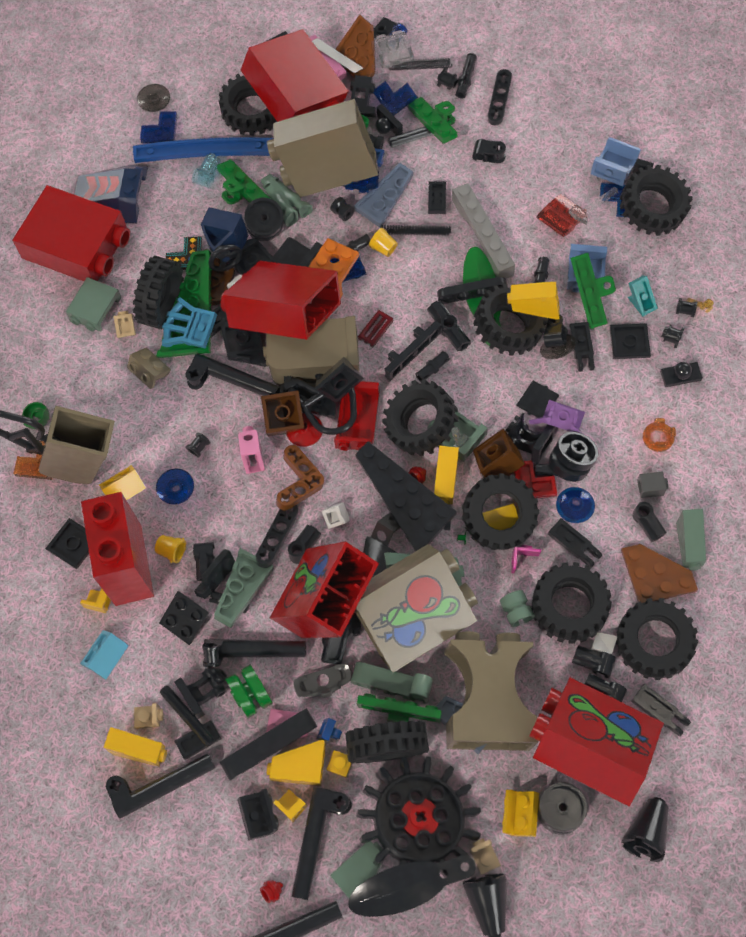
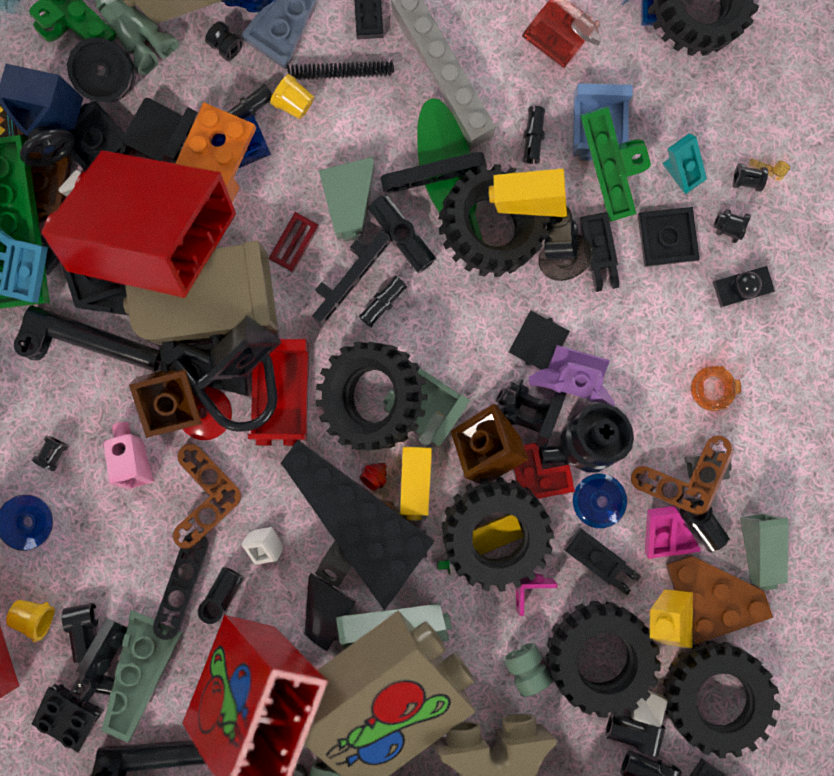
camera: 15 degrees left, 20 degrees up
(414, 301) = (348, 196): none -> sand green slope
(621, 524) = (668, 534): none -> dark pink wing
(621, 579) = (672, 619): none -> yellow slope
(640, 489) = (696, 485): none -> dark orange beam

